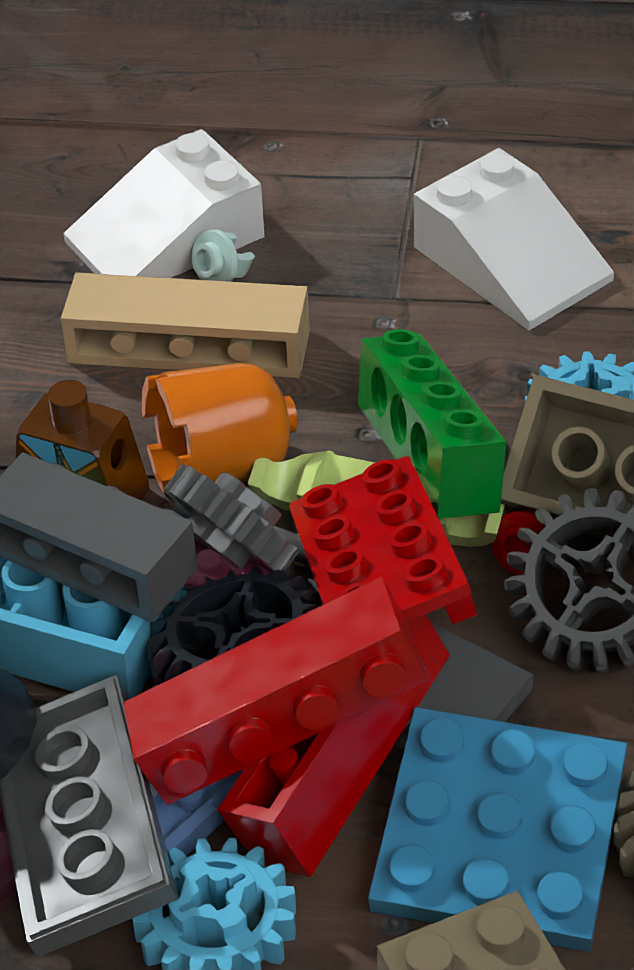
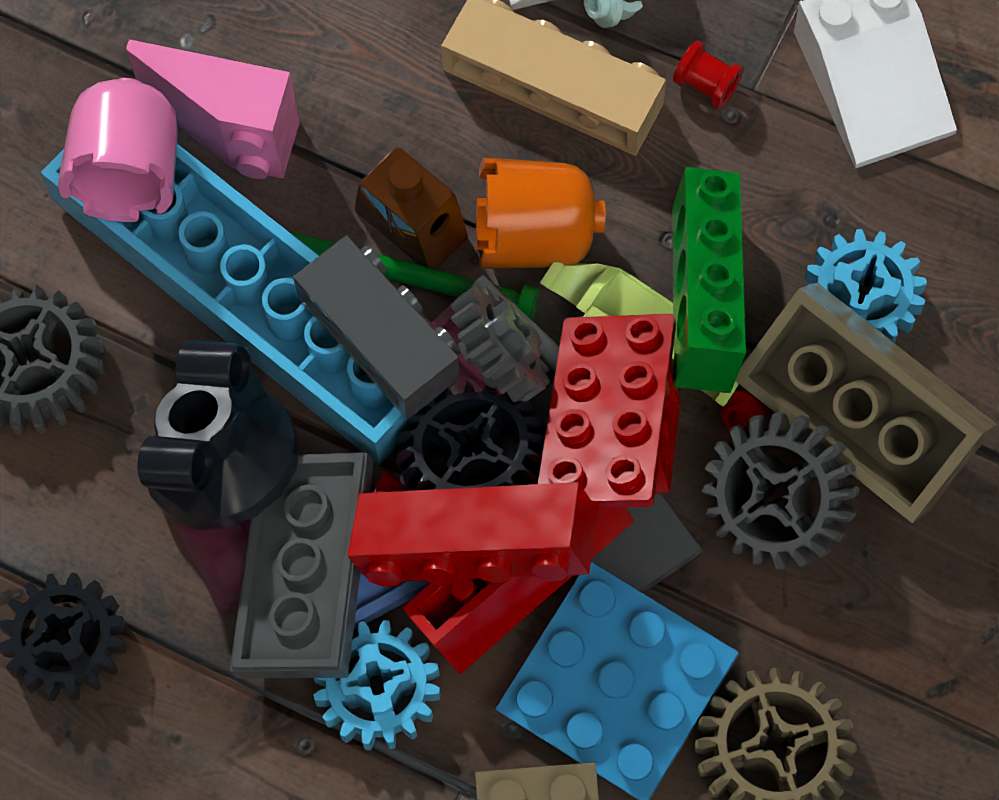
camera: 20 degrees right, 25 degrees up
(346, 287) = (708, 74): none -> red bush

